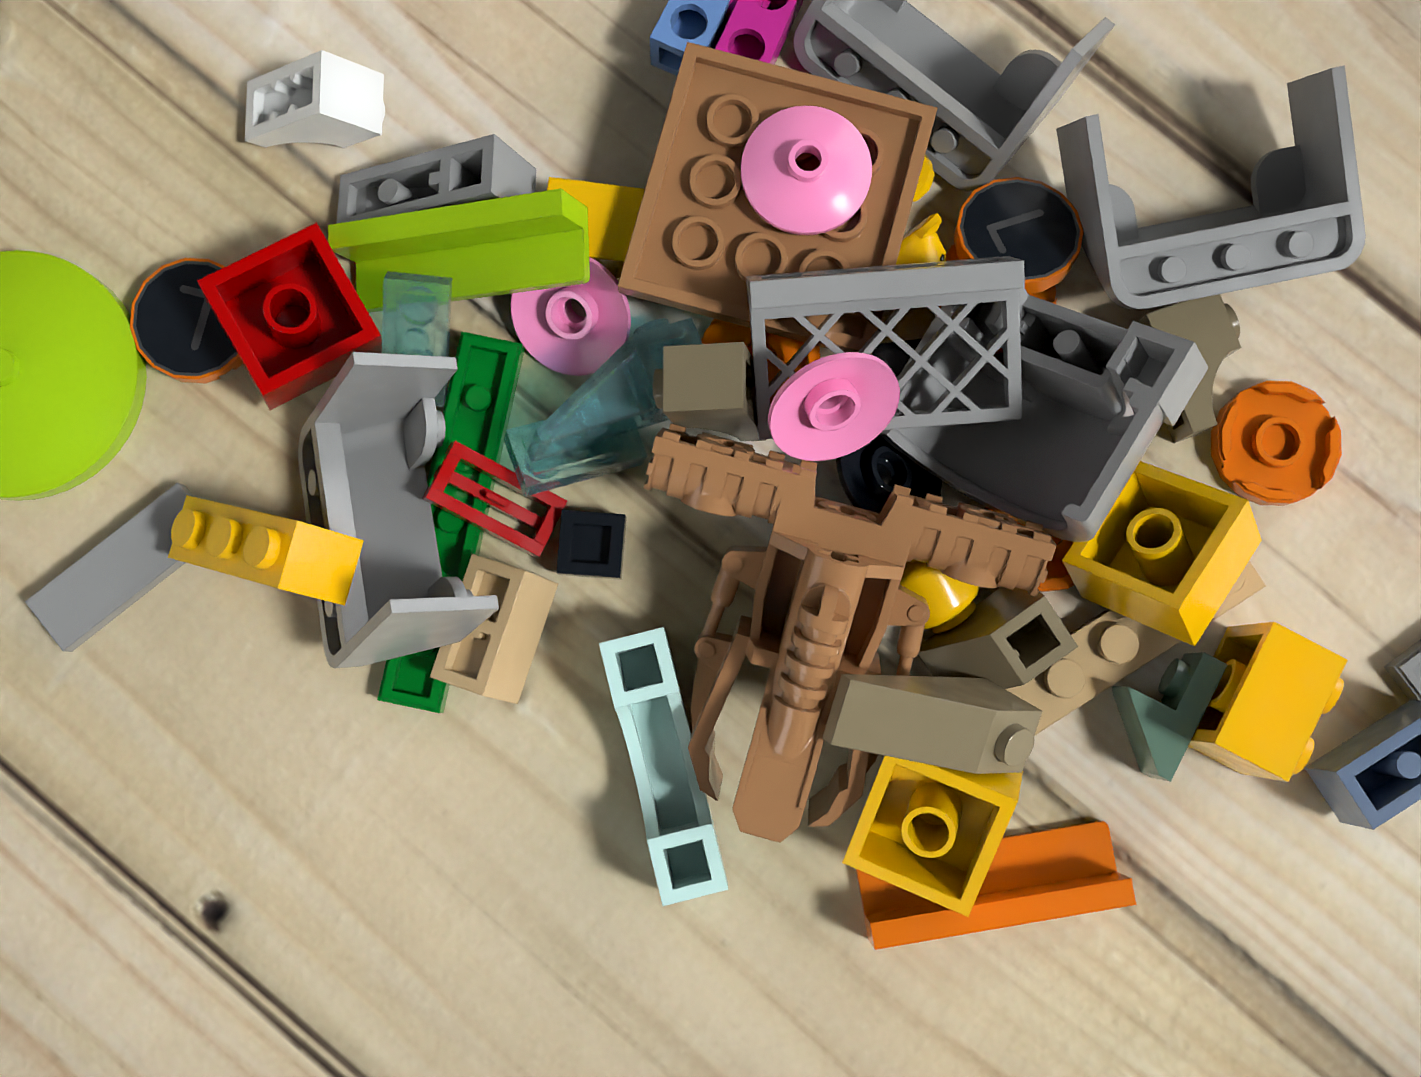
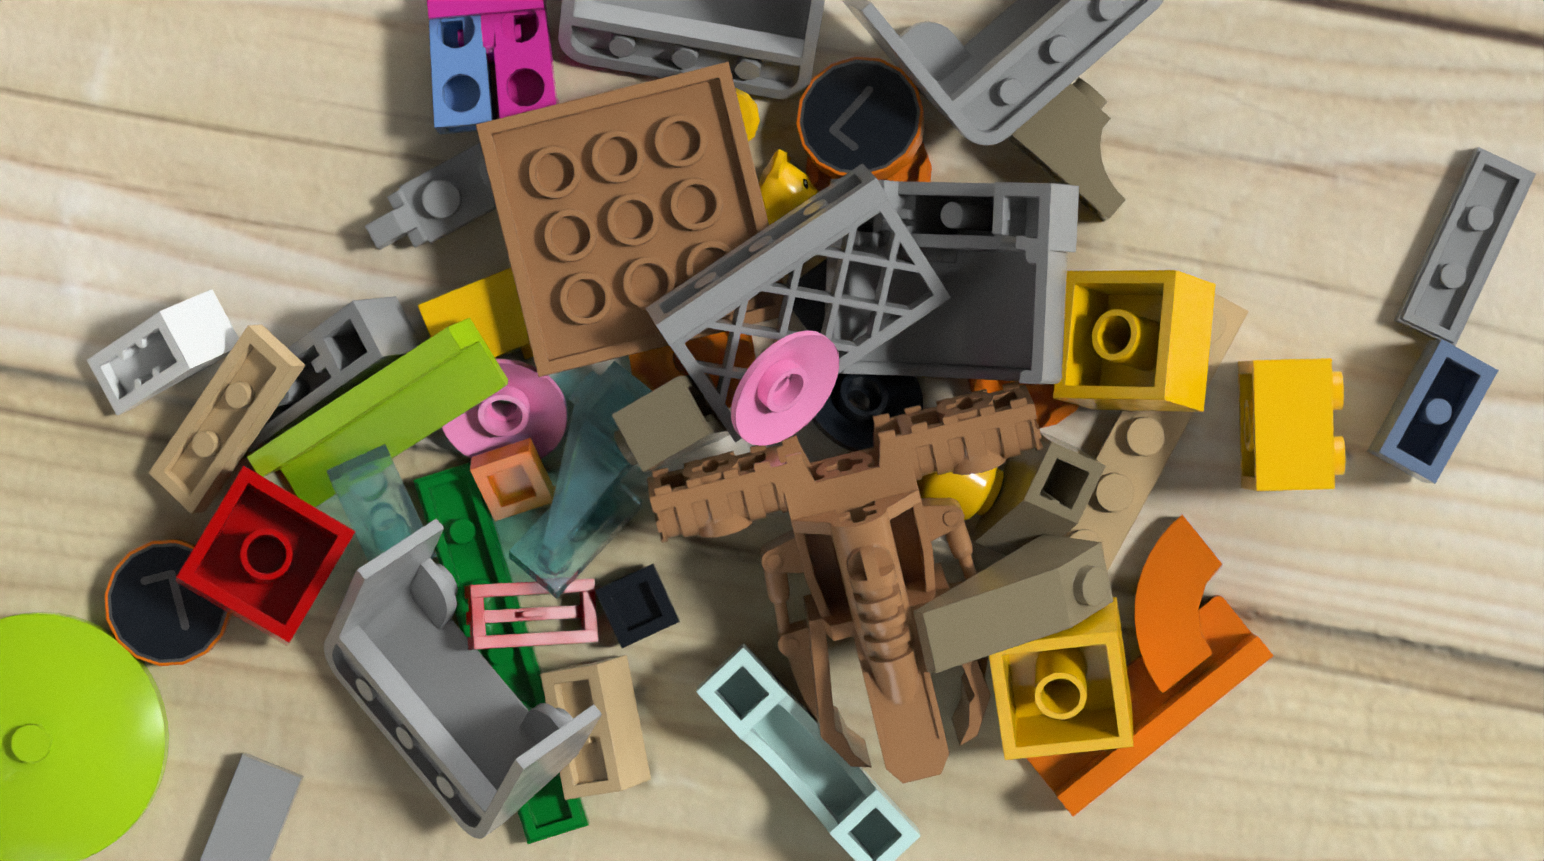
camera: 25 degrees left, 5 degrees up
(265, 549) = (366, 771): yellow brick -> none
(334, 181) = (226, 418): none -> tan plate
(544, 374) = (512, 479): none -> orange plate
(611, 113) = (437, 202): none -> light grey hinge
(801, 199) = (652, 218): bright pink dish -> none
(1059, 806) = (1170, 602): none -> orange tile
(1164, 729) = (1223, 490): sand green slope -> none
(1276, 443) = (1193, 173): orange tile -> none

